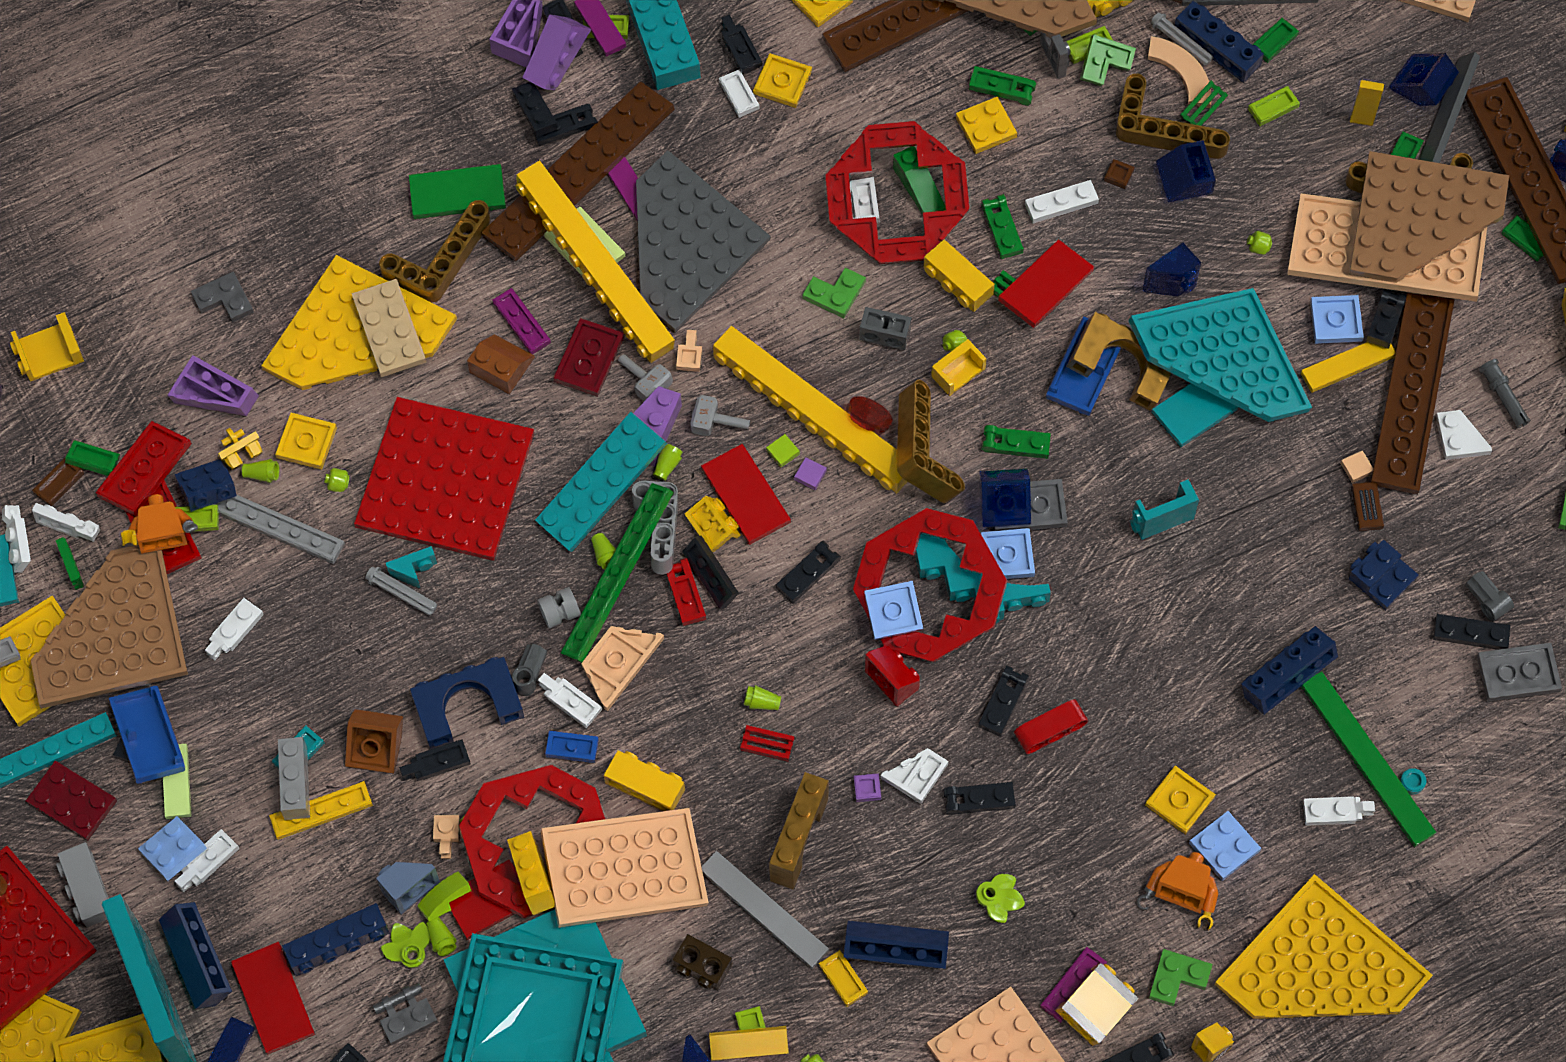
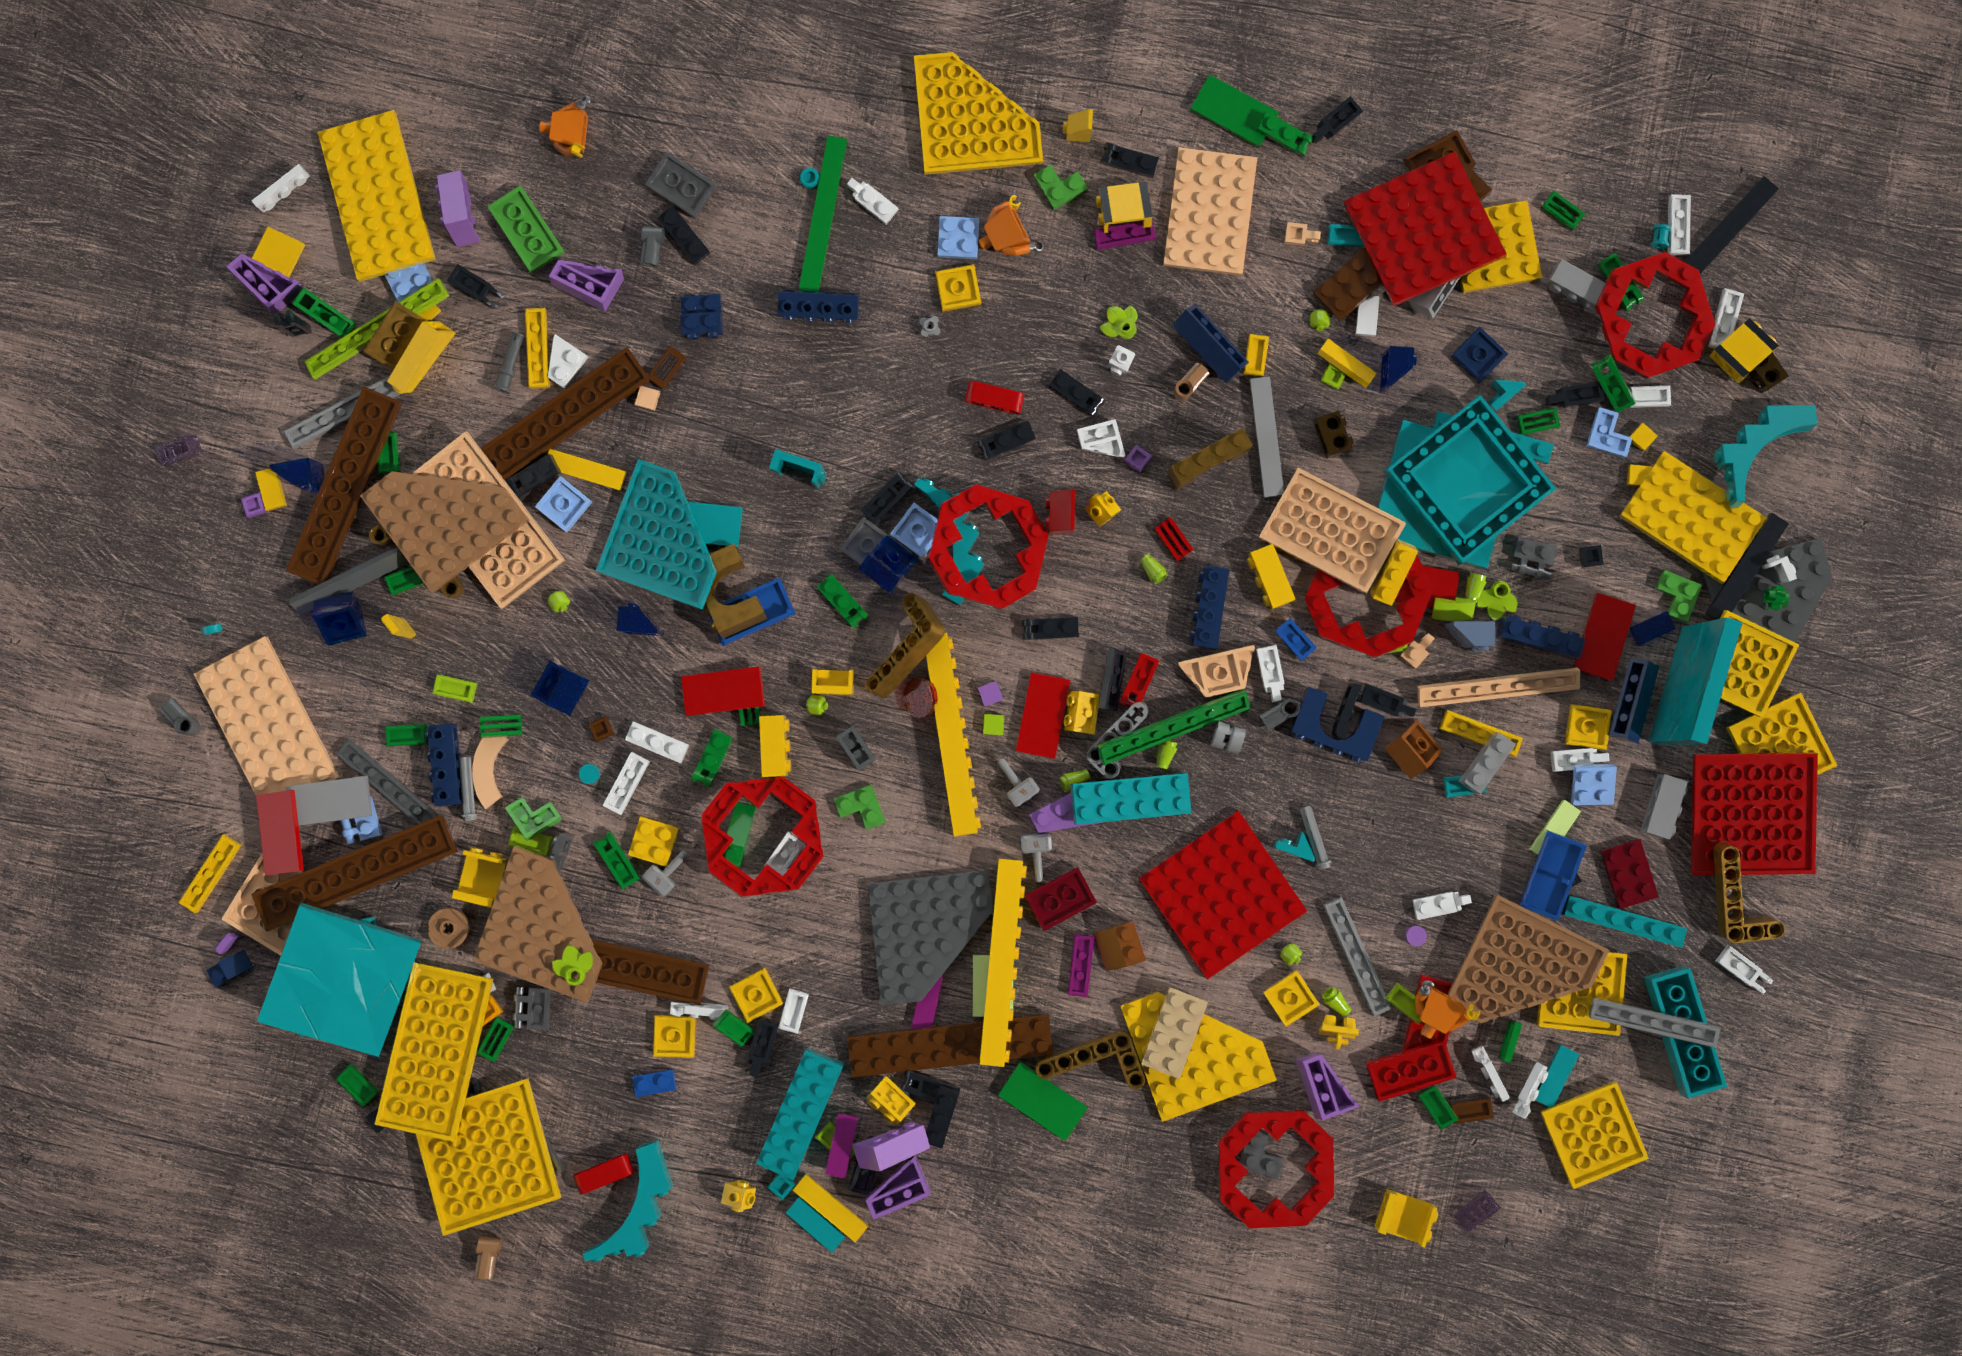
camera: 135 degrees left, 20 degrees up
(169, 263) = (1232, 1171): none -> red plate
(205, 485) = (1382, 1020): dark blue plate -> none
(220, 901) = (1588, 727): none -> yellow tile
(234, 584) = (1415, 935): none -> medium lavender tile
(338, 863) = (1498, 687): none -> light nougat plate
(467, 721) = (1346, 710): none -> black hinge
(590, 89) = (890, 1101): none -> yellow bracket
(678, 708) = (1210, 607): none -> dark blue brick
(689, 355) = (995, 842): light nougat plate -> none
(776, 37) = (734, 1028): none -> green tile
(812, 35) = (697, 1011): none -> white hinge
(858, 709) = (1102, 508): none -> yellow brick
(882, 897) = (1191, 381): none -> medium nougat piece
(893, 610) = (1027, 548): light blue plate -> none
(951, 99) = (659, 879): none -> light grey piece
(965, 854) = (1121, 361): none -> white bracket
(1054, 148) = (626, 783): none -> white plate
(1062, 558) = (886, 498): none -> black plate
(1093, 132) = (589, 774): none -> teal tile
(1162, 127) = (544, 734): pearl gold beam -> none
(1171, 748) = (934, 330): none -> light grey plate
(1496, 428) = (537, 348): none -> yellow tile
(1508, 511) = (588, 283): none -> medium lavender wedge

